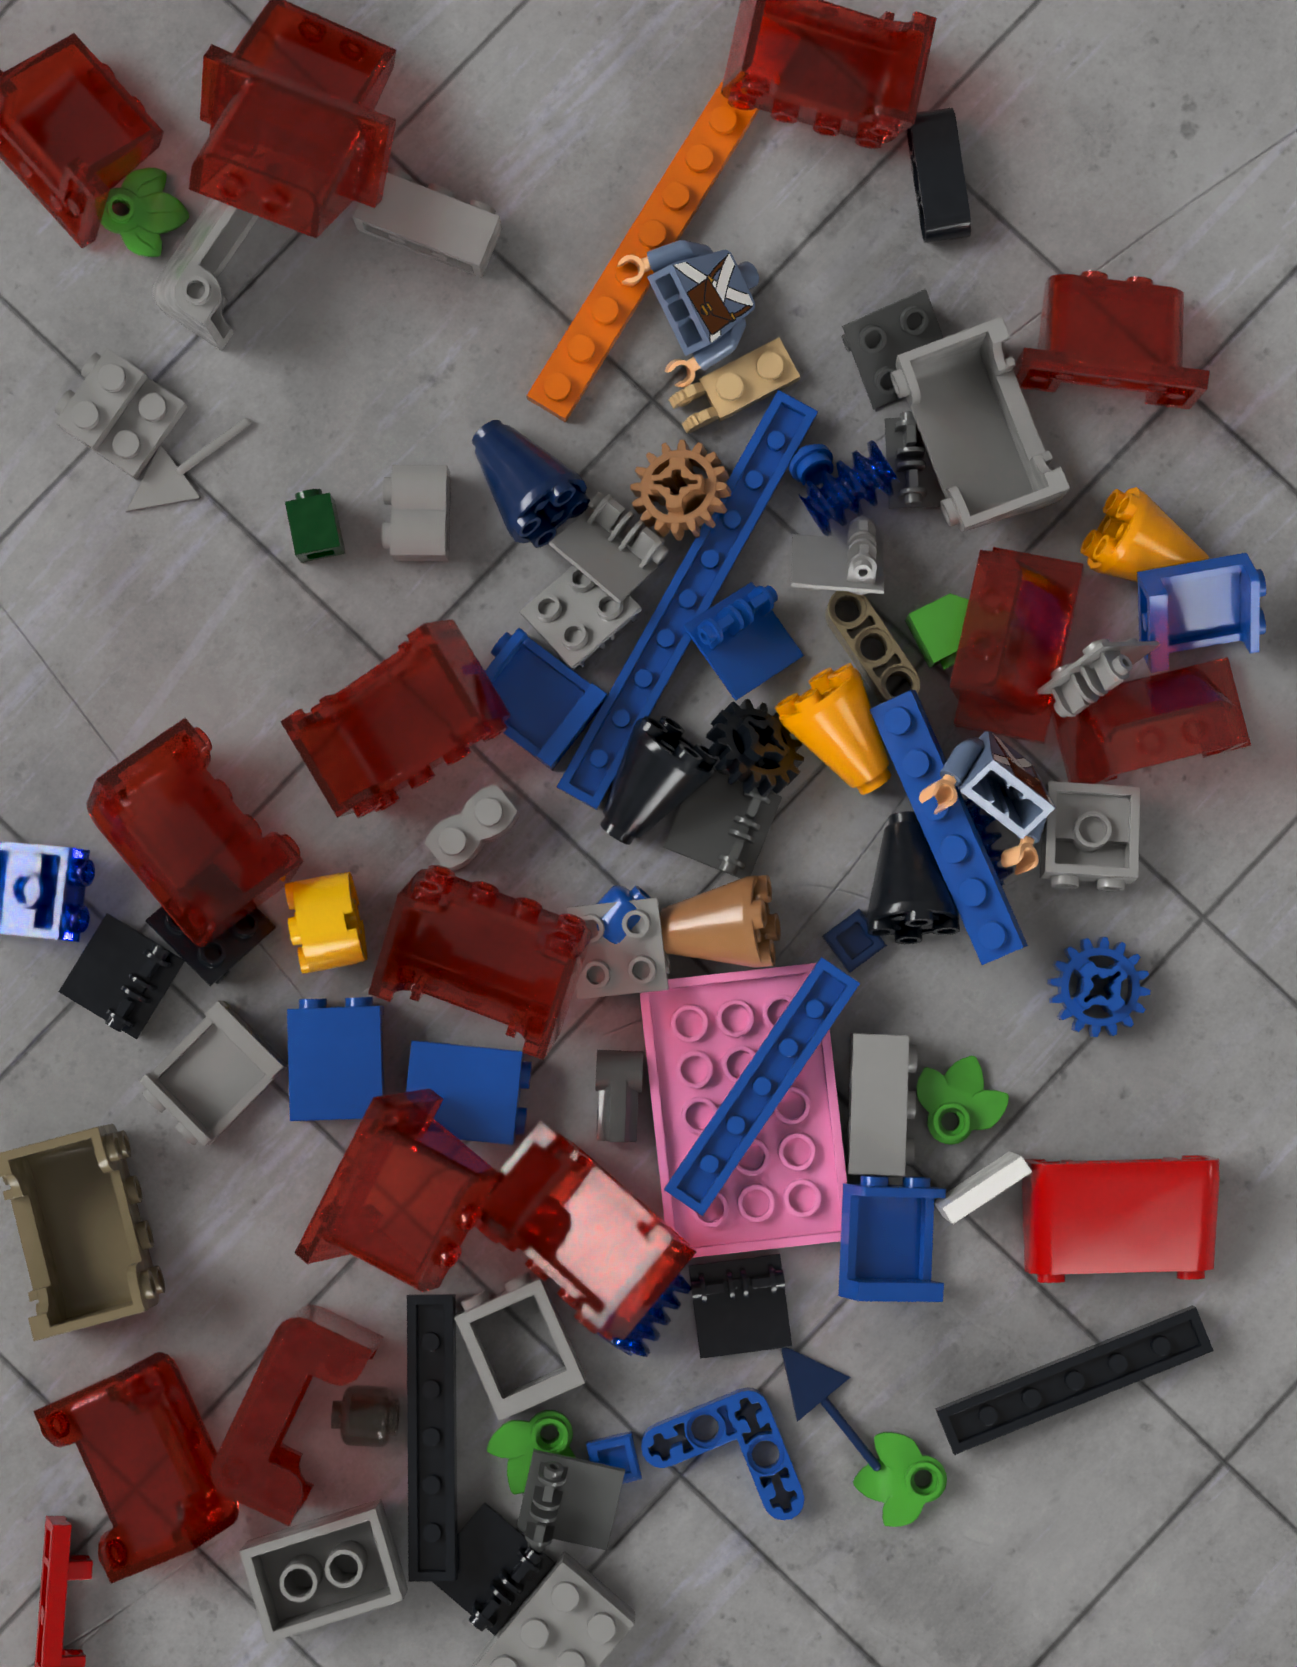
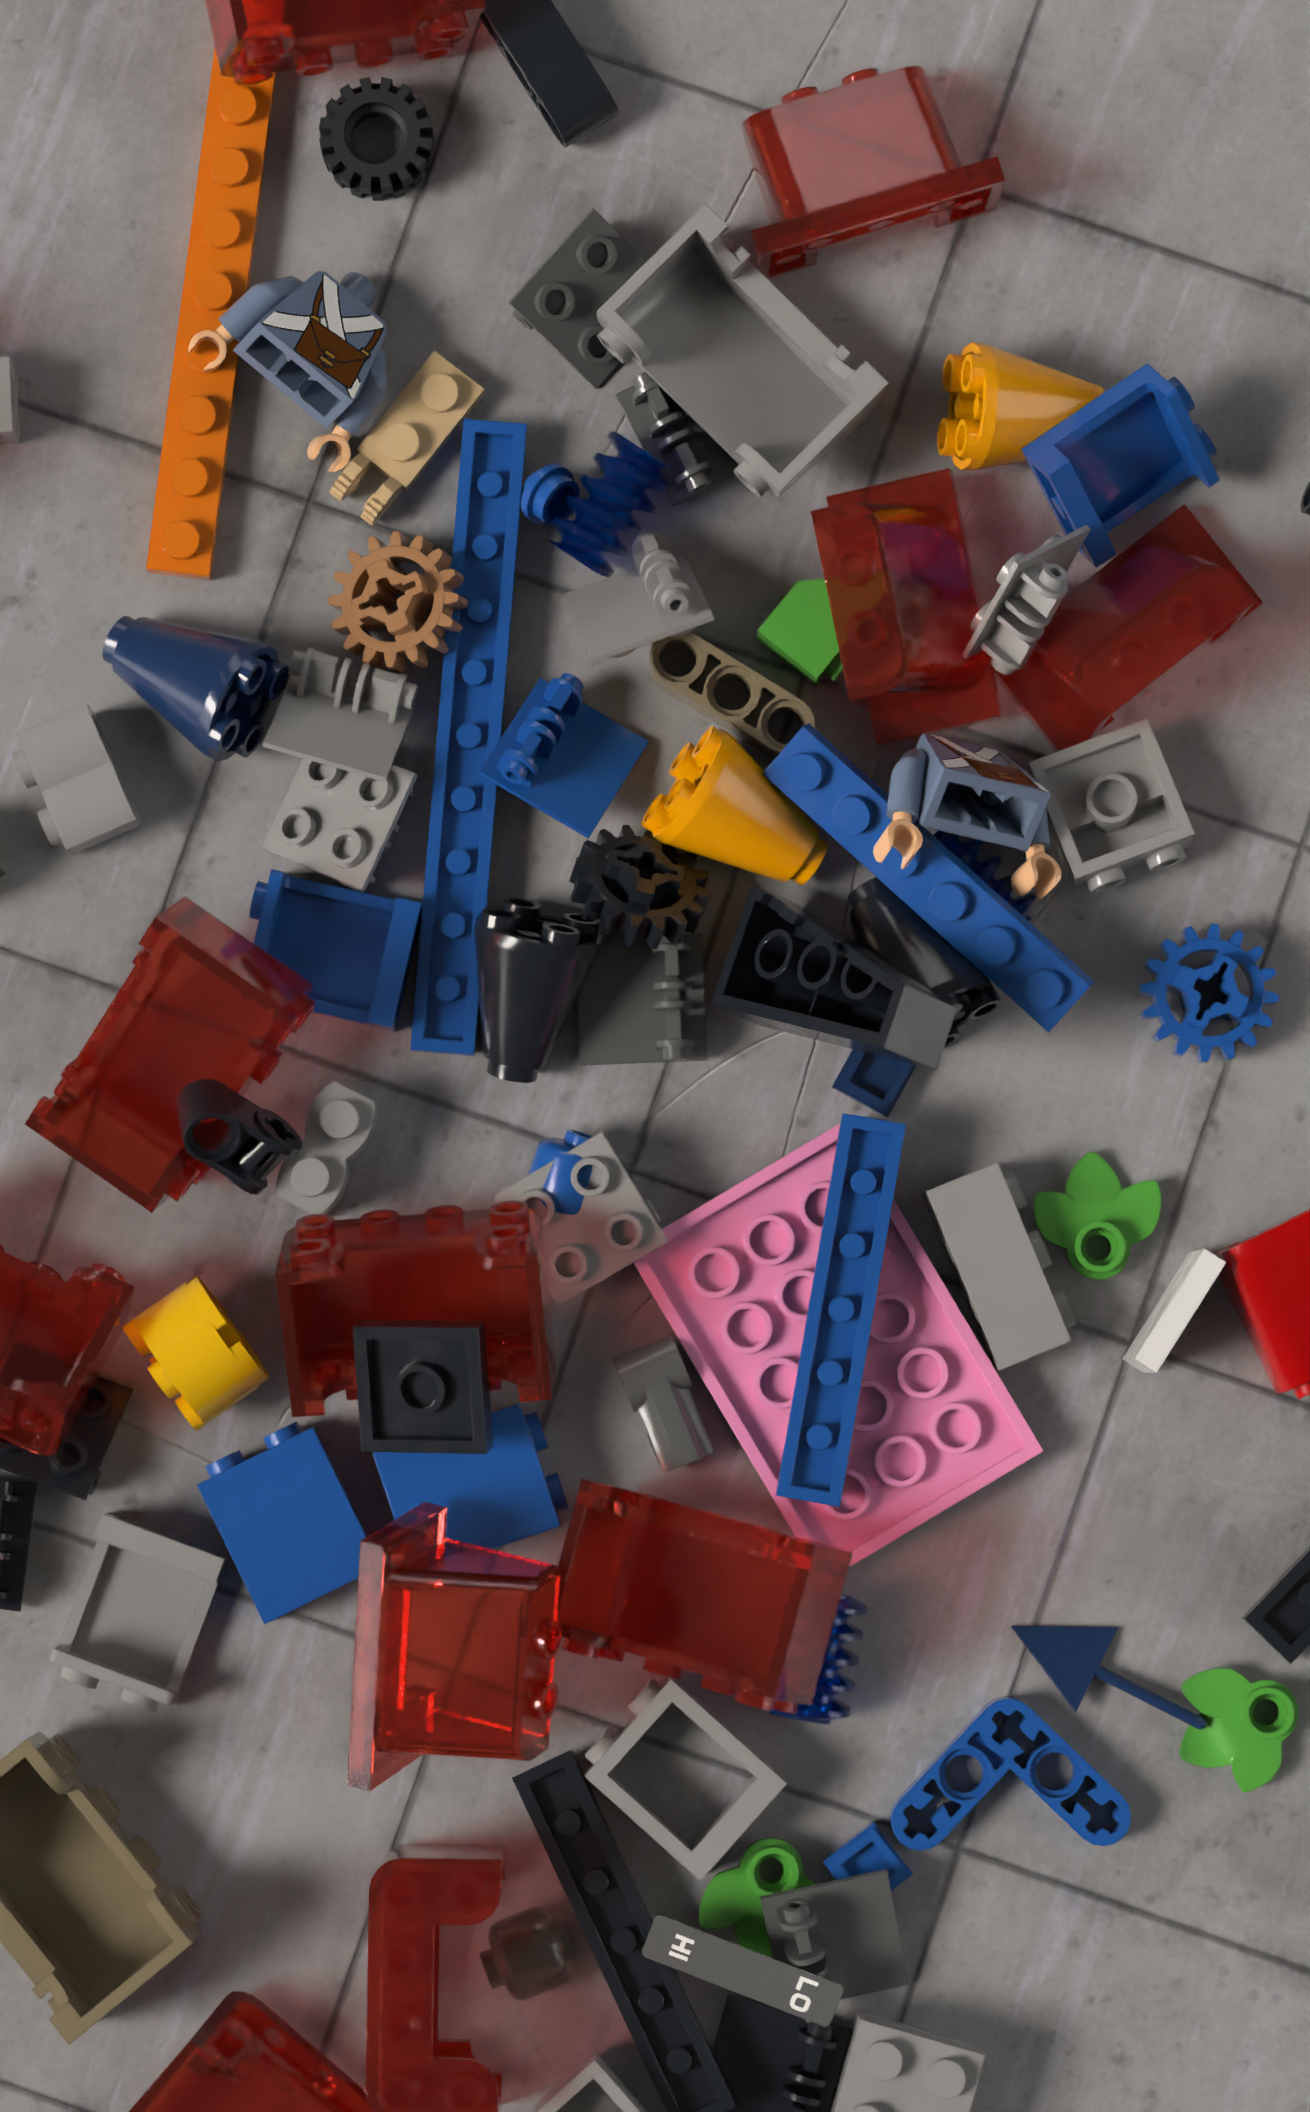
camera: 30 degrees left, 0 degrees up
(418, 797) = (244, 1139): none -> black piece
(463, 1012) = (423, 1386): none -> black plate
(500, 1493) = (742, 1971): none -> dark grey sticker
(725, 924) = (702, 1127): medium nougat cone -> none
(740, 1306) = (938, 1600): black hinge -> none
(803, 155) = (376, 101): none -> black tyre
(845, 865) = (822, 985): none -> black wedge
(888, 1240) = (1087, 1431): blue panel -> none

